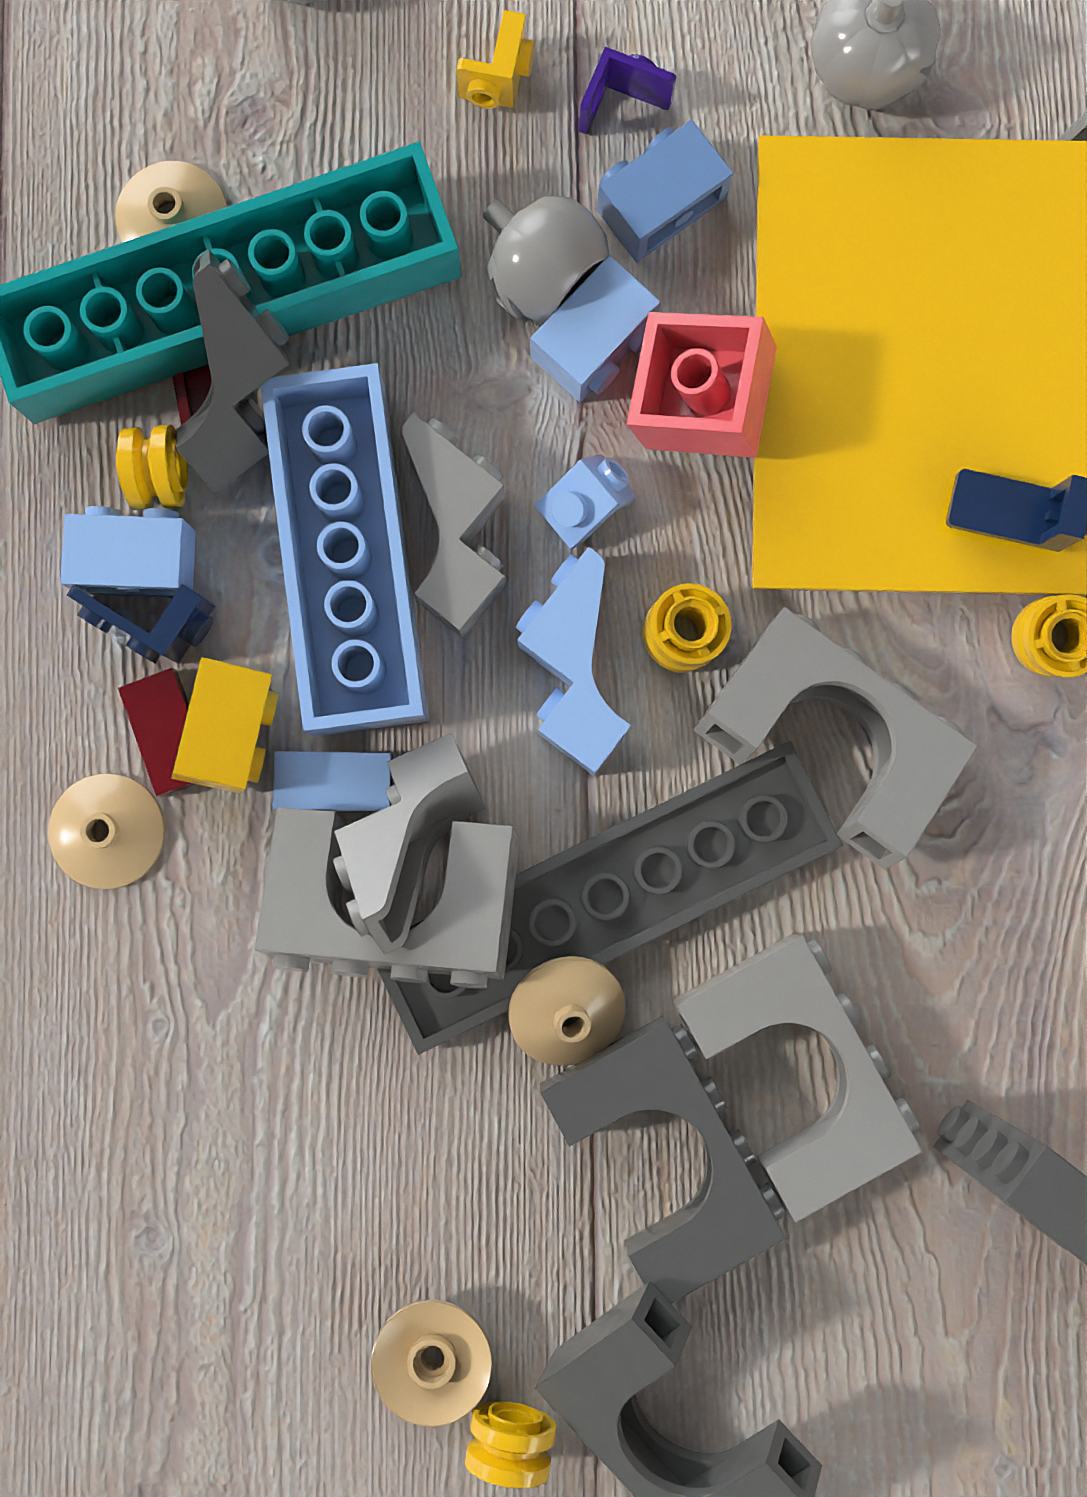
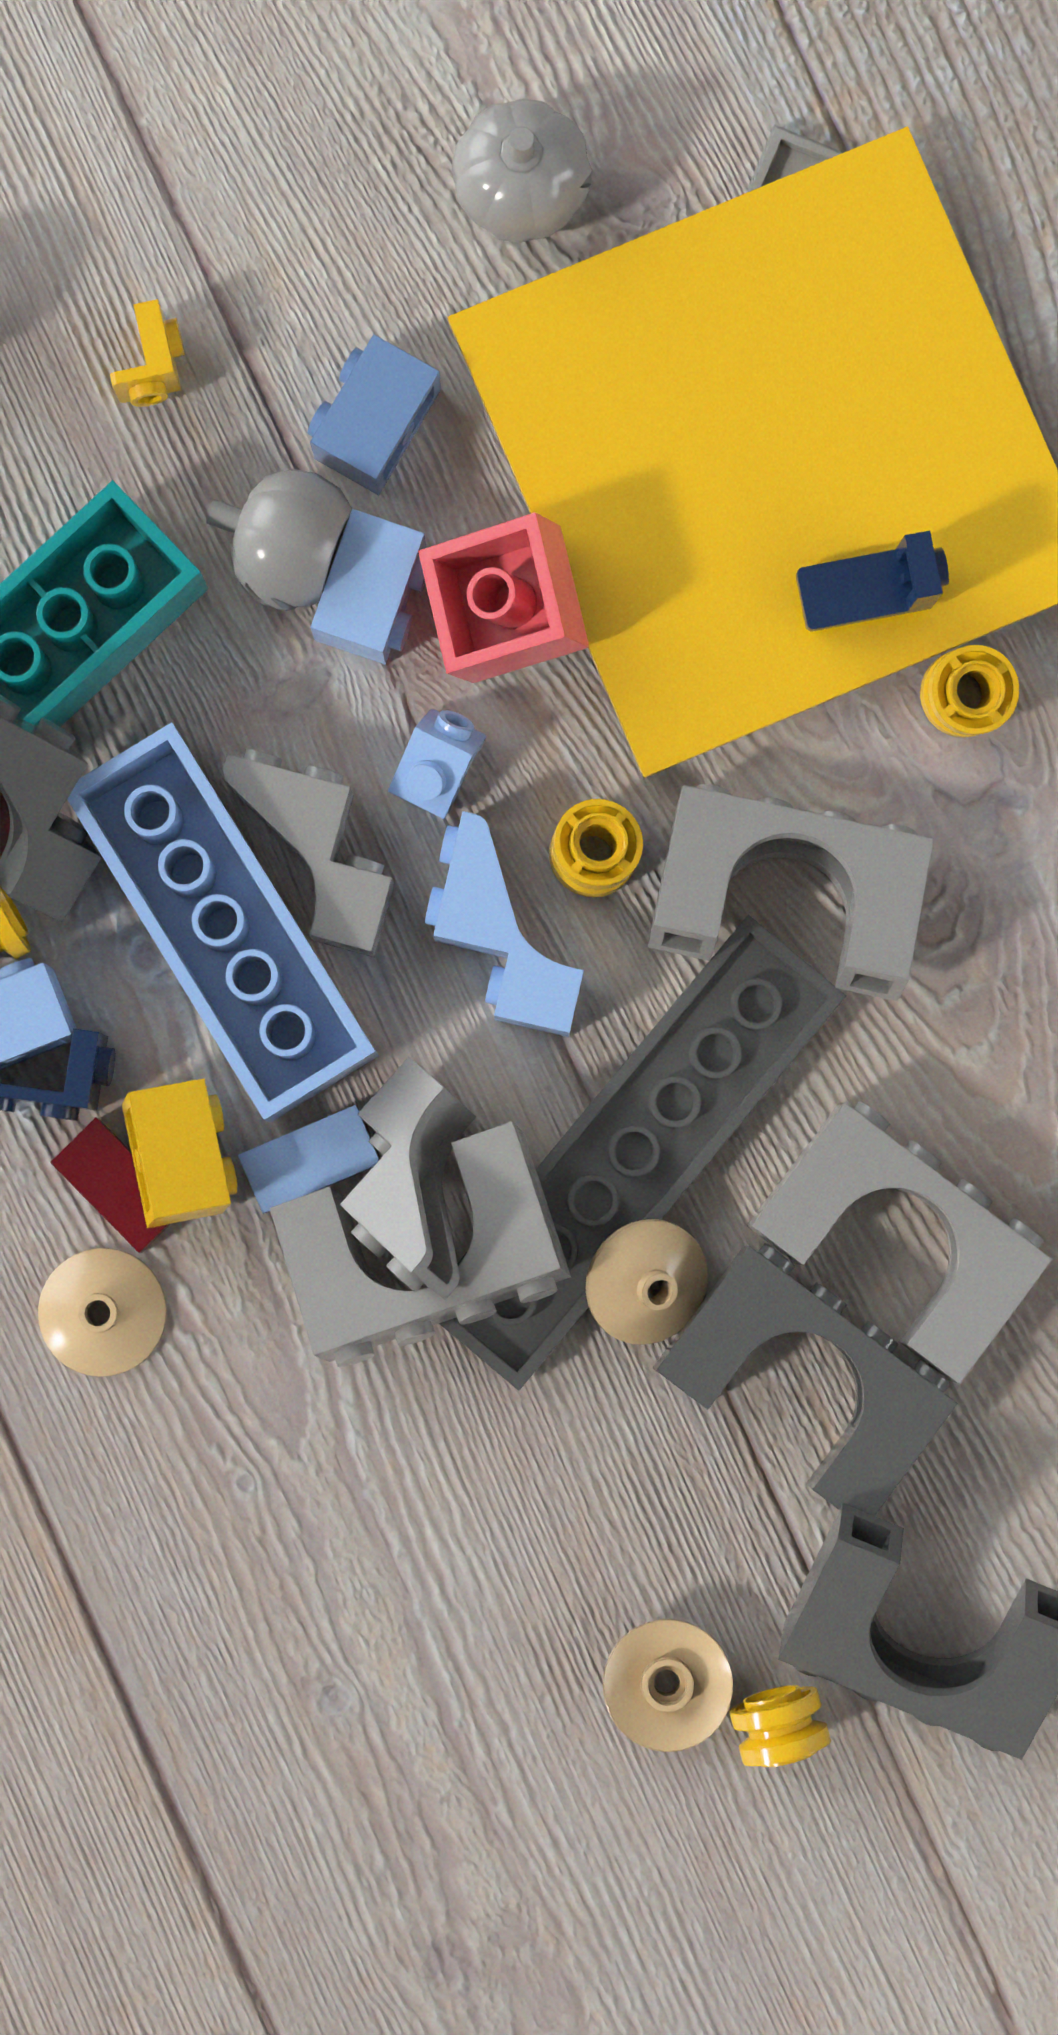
camera: 30 degrees left, 0 degrees up
(629, 75) = (289, 308): dark purple bracket -> none

